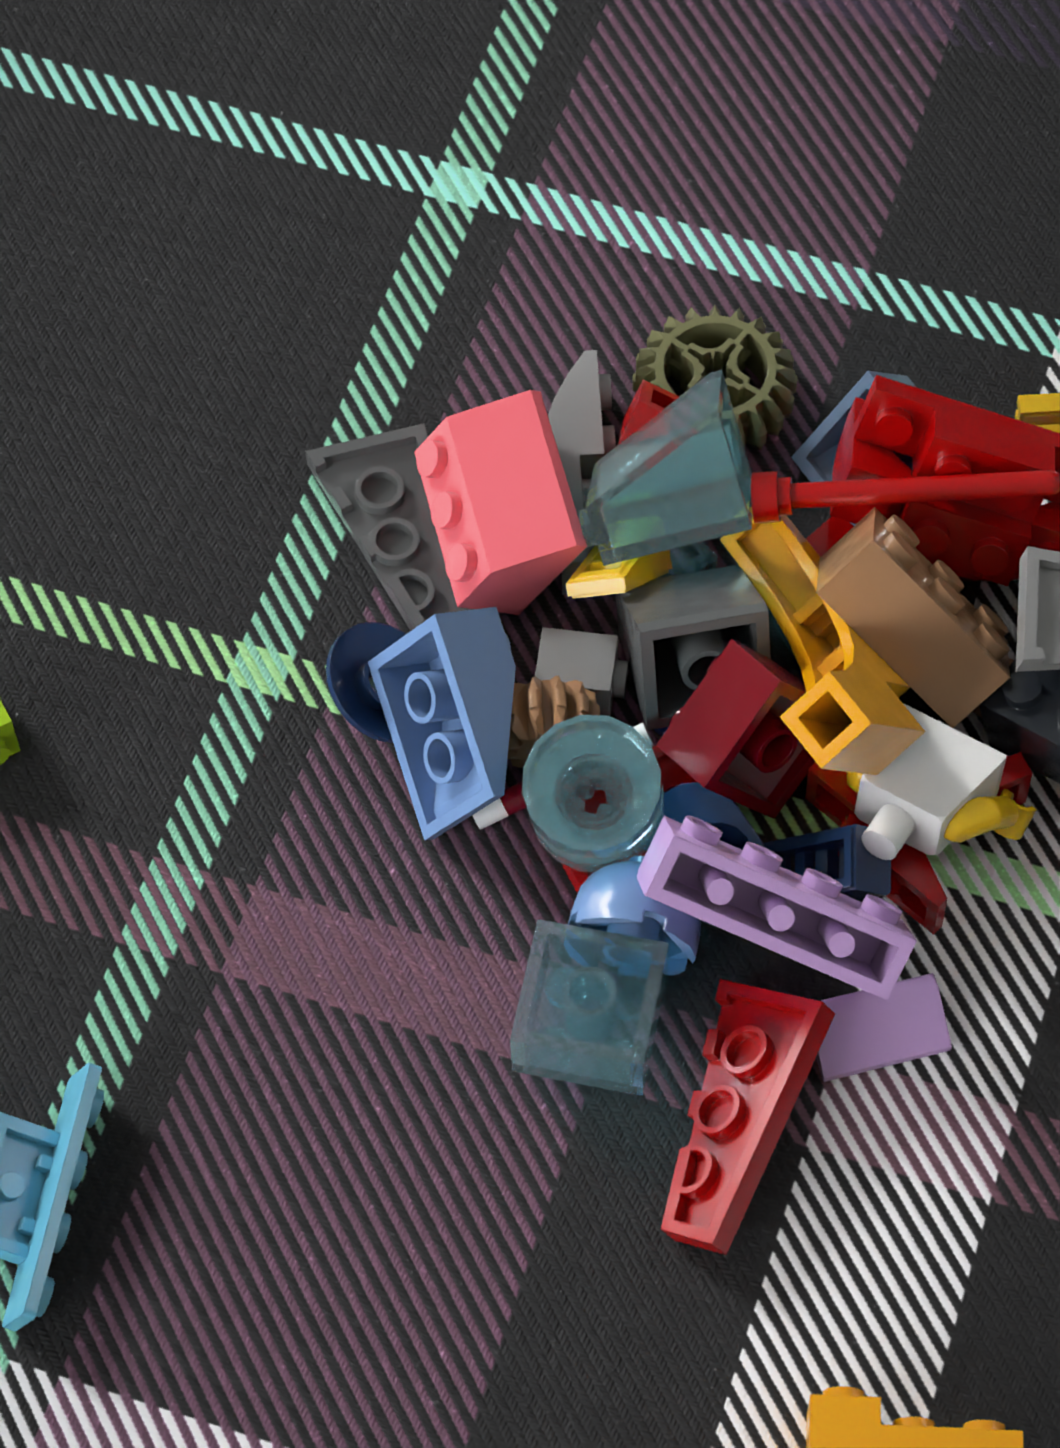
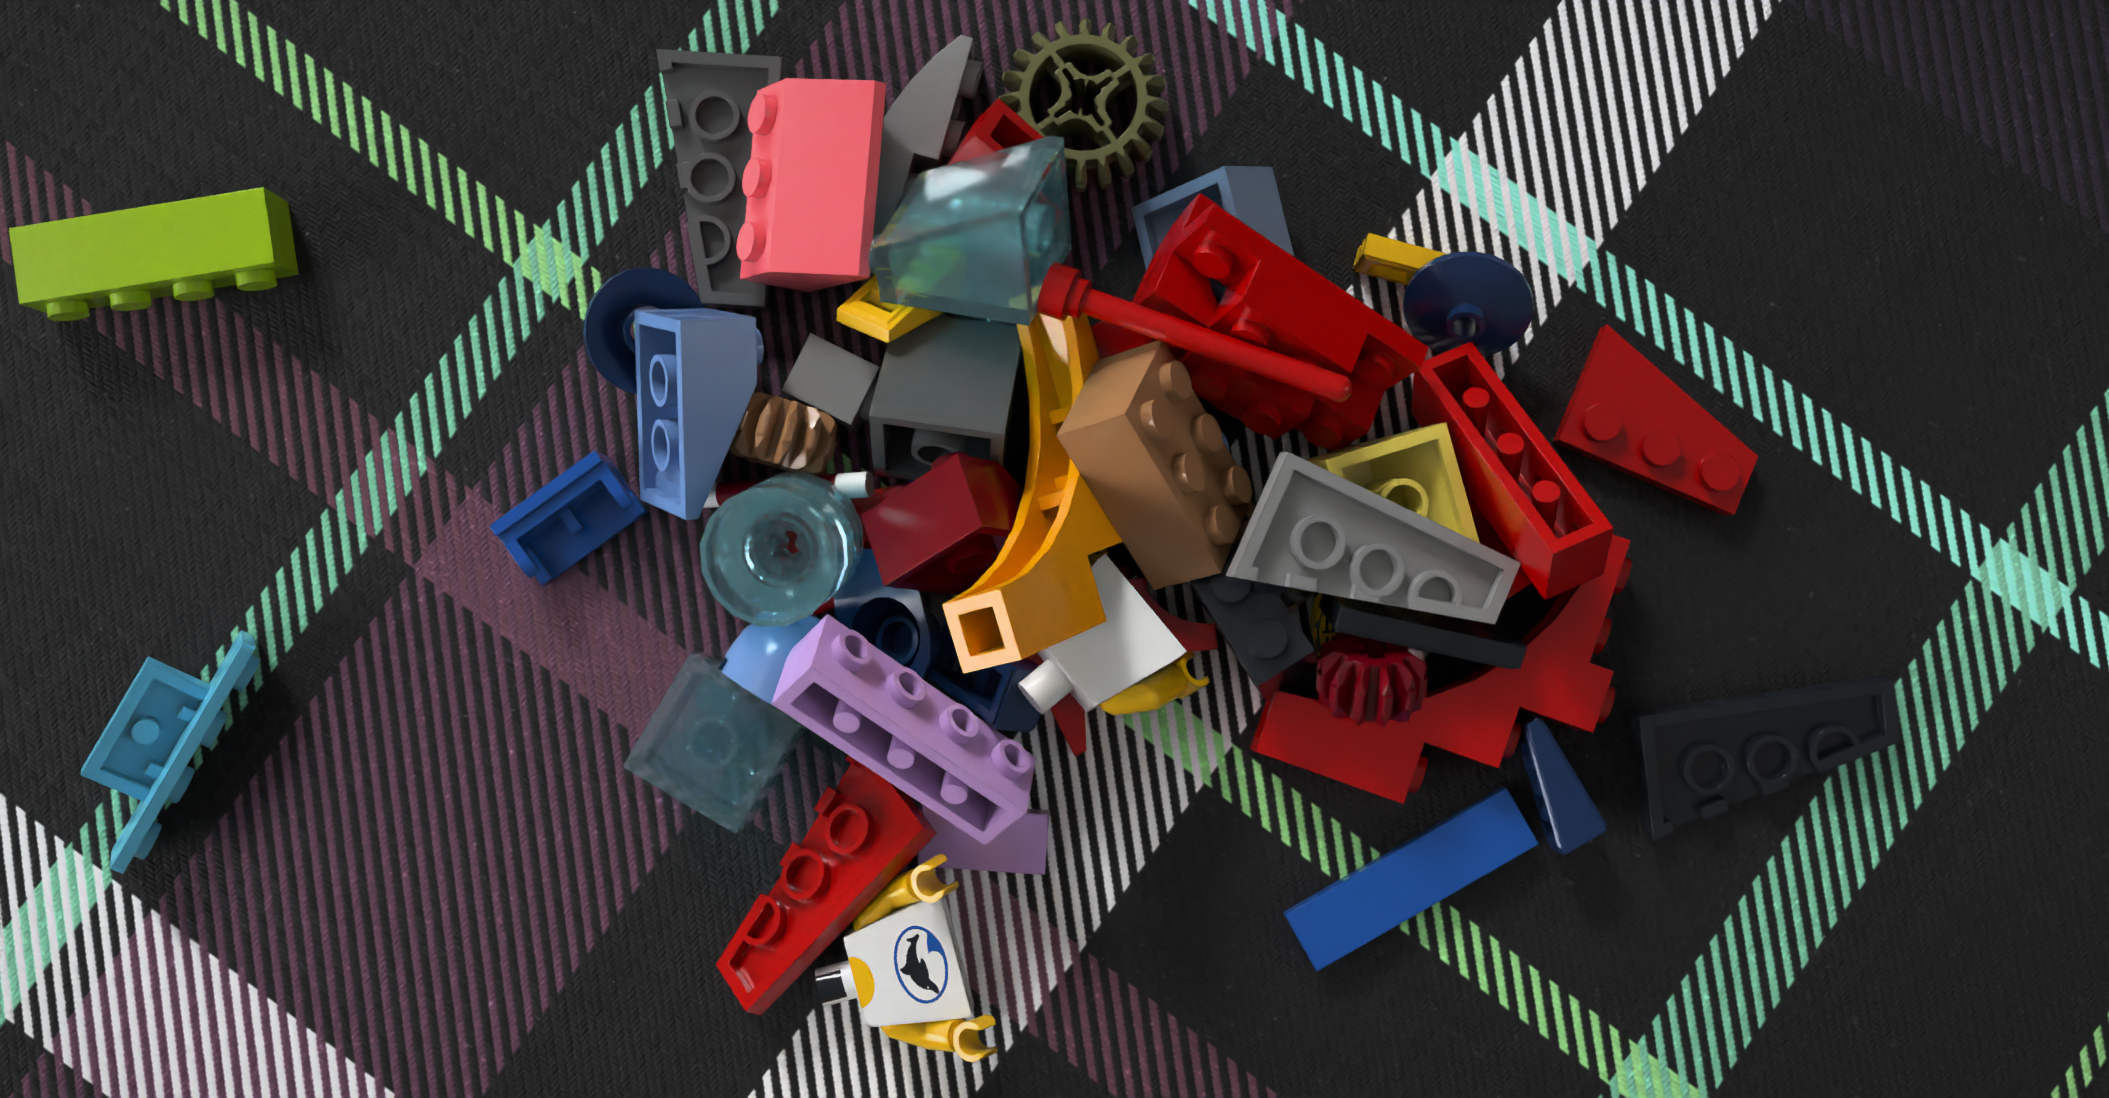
camera: 15 degrees right, 25 degrees up
(365, 868) = (569, 518): none -> blue hinge
(854, 1156) = (909, 968): none -> torso

